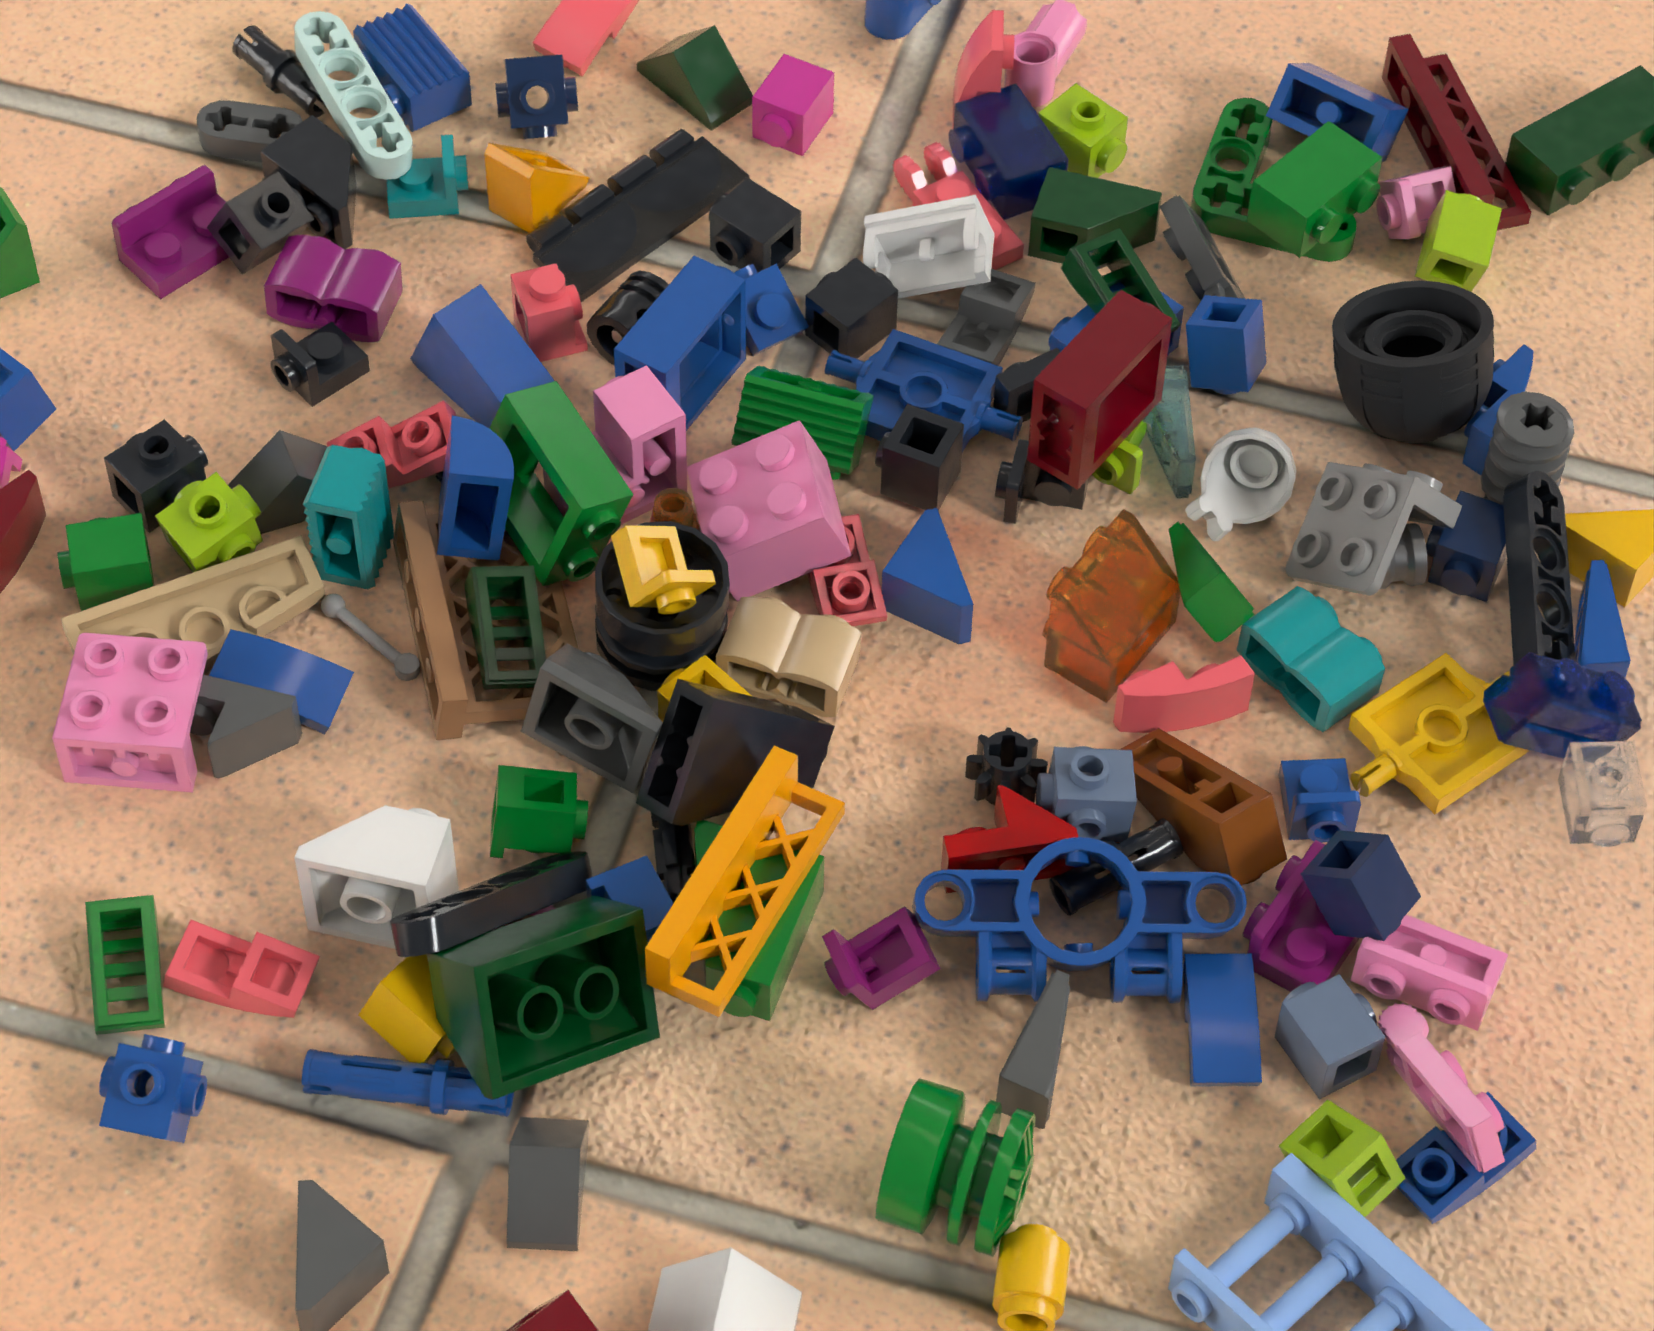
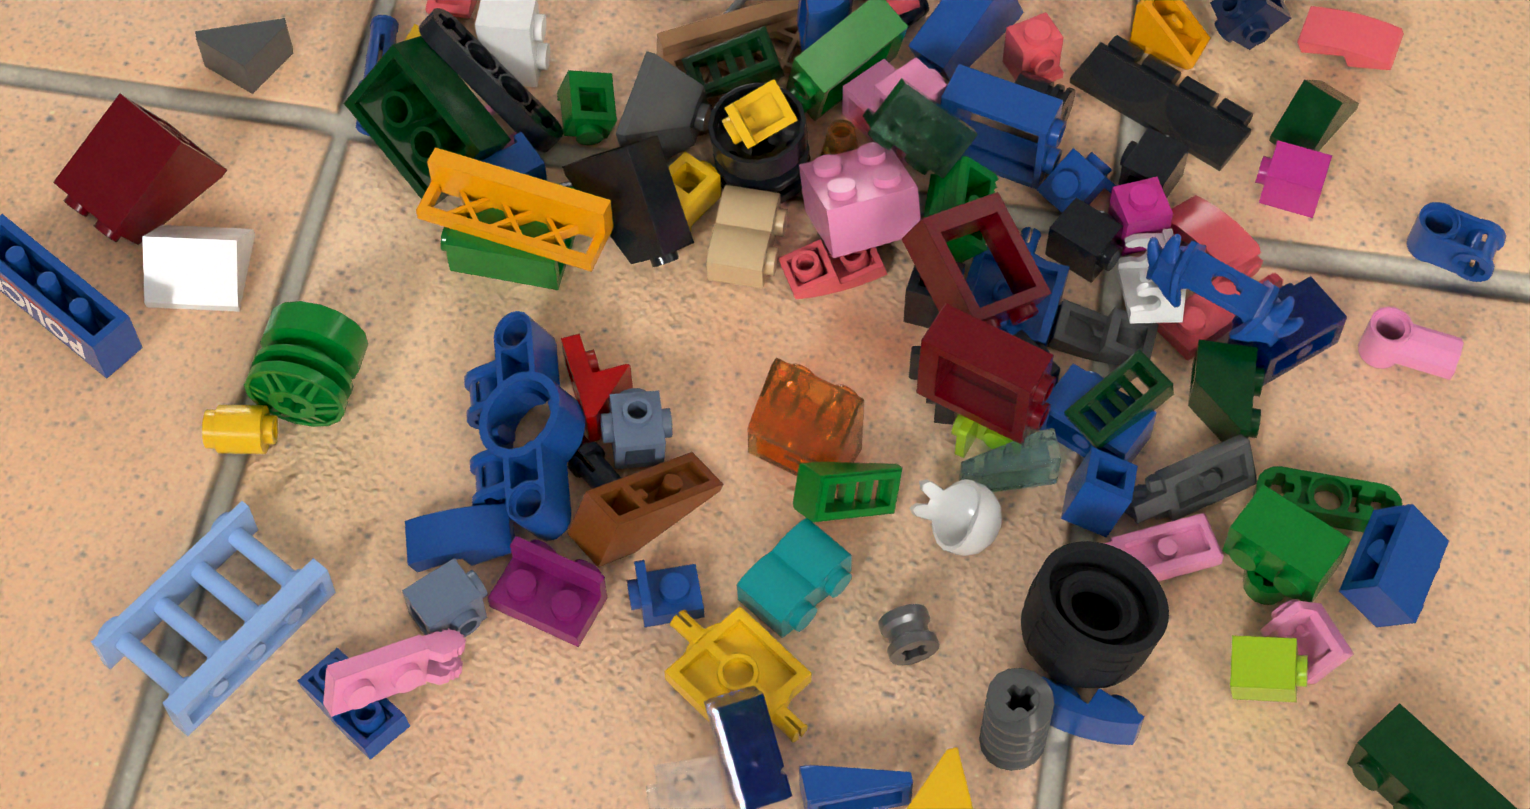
camera: 85 degrees right, 5 degrees up
(546, 1183) = (315, 155): dark grey slope -> none
(714, 405) = (920, 128): none -> clear green bracket
(825, 242) = (1140, 209): none -> dark pink brick
(866, 187) = (1210, 226): none -> coral slope
(880, 959) = (481, 308): magenta bracket -> none
(926, 582) = (831, 315): blue slope -> none
(927, 383) = (943, 277): none -> dark red window
(966, 186) = (1191, 268): none -> blue piece
(983, 59) = (1357, 289): coral slope -> none
(1006, 761) = (662, 373): black gear -> none
(1032, 1065) = (413, 418): dark grey slope -> none
(1087, 131) = (1319, 380): lime brick -> none
(1174, 703) = (742, 488): coral slope -> none
(1296, 322) = (1173, 547): none -> bright pink hinge
(1346, 1156) = (332, 611): lime brick -> none
(1359, 523) = (942, 595): light grey bracket -> none
(1361, 885) = (548, 596): dark blue brick -> none
(1431, 971) = (509, 670): bright pink bracket -> none
(1438, 134) = (1405, 654): dark red fence -> none
(1471, 552) = (927, 692): dark blue brick -> none
(1538, 523) = (877, 722): black beam -> none

